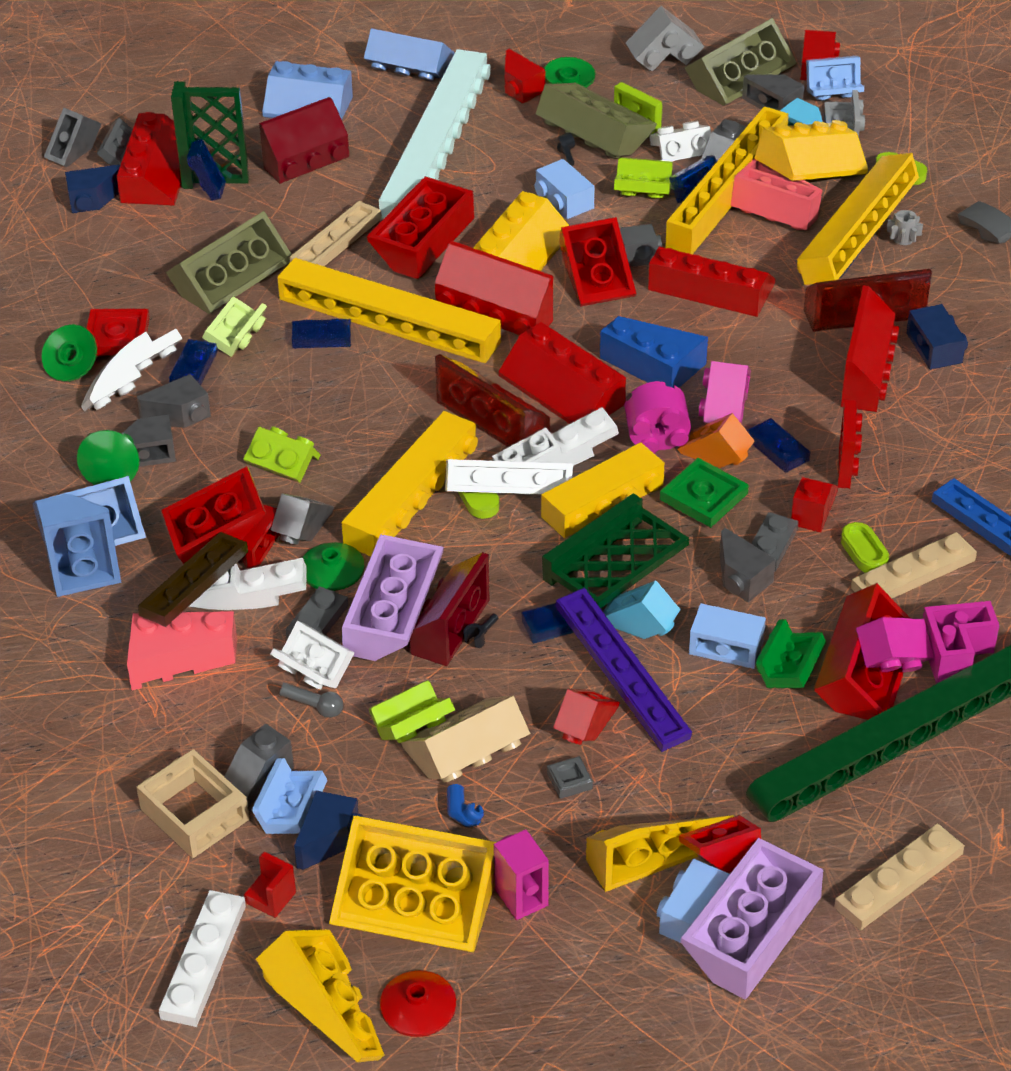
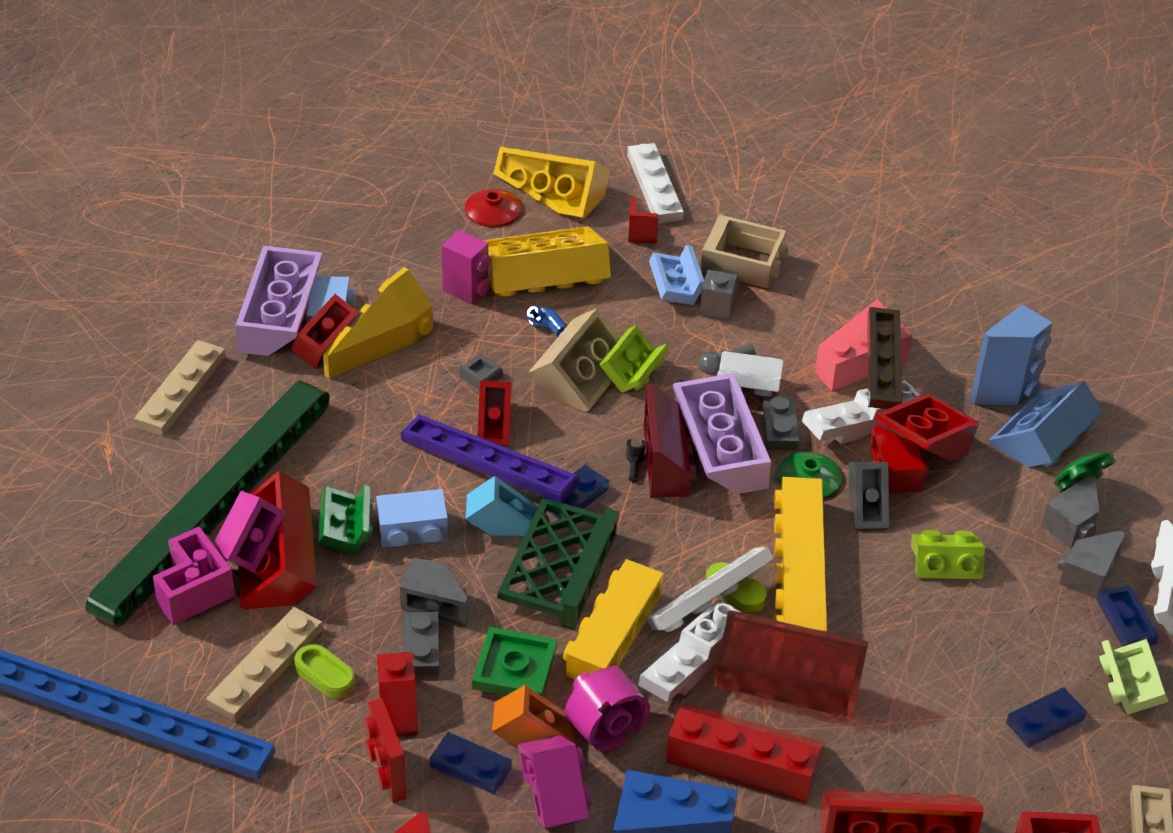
camera: 150 degrees right, 0 degrees up
(325, 828) = (634, 269): dark blue slope -> none
(390, 310) = (1000, 763): yellow brick -> none

